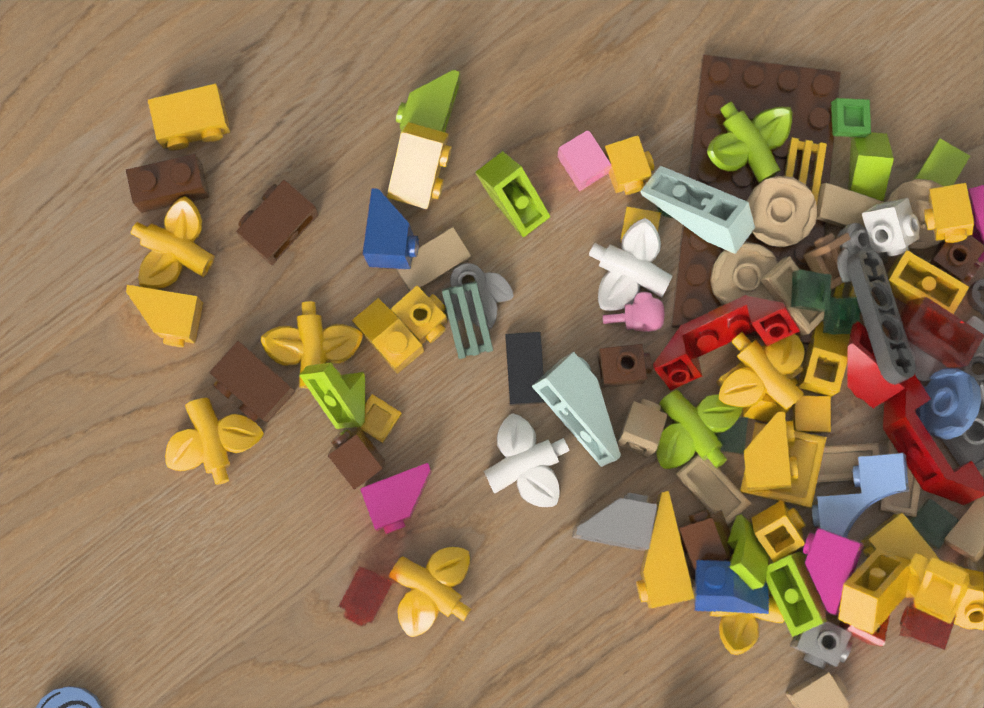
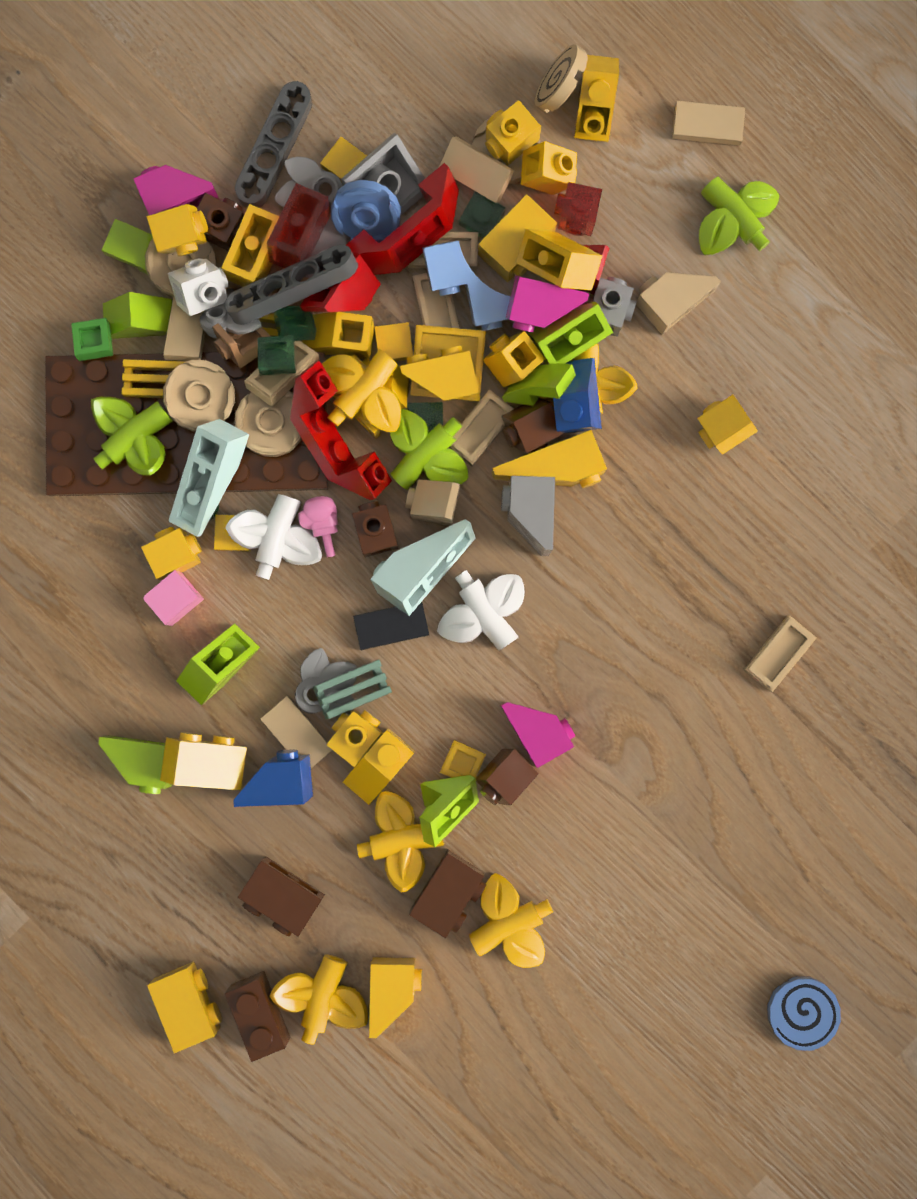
camera: 100 degrees left, 5 degrees up
(366, 596) = (640, 743): clear red brick -> none
(431, 589) = (619, 683): yellow plant -> none
(940, 586) = (545, 198): yellow brick -> none

